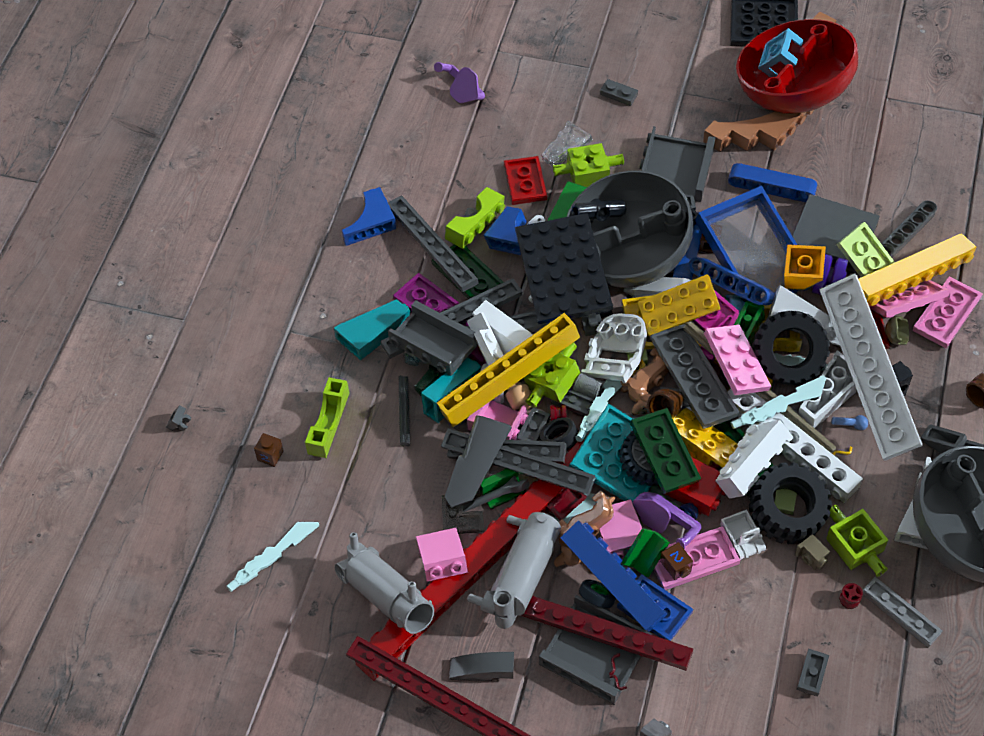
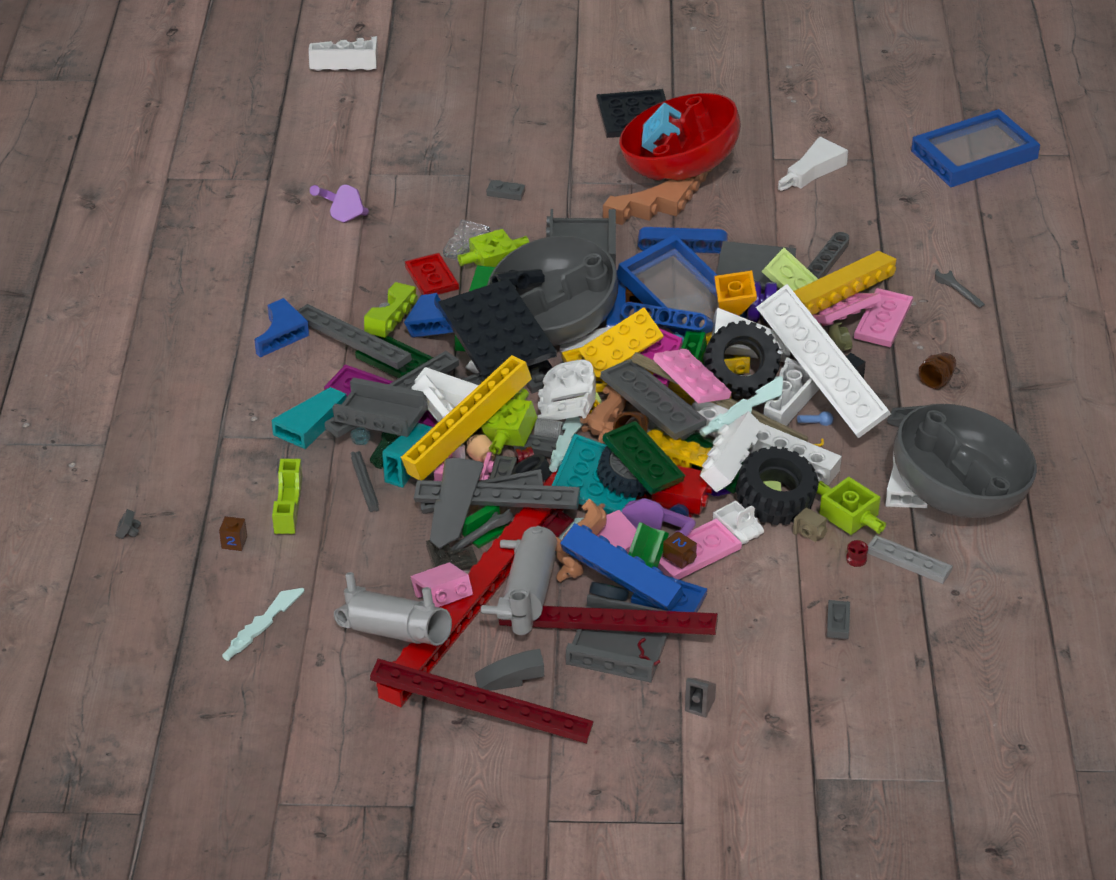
camera: 15 degrees left, 15 degrees down
(931, 109) = (818, 160): none -> white piece

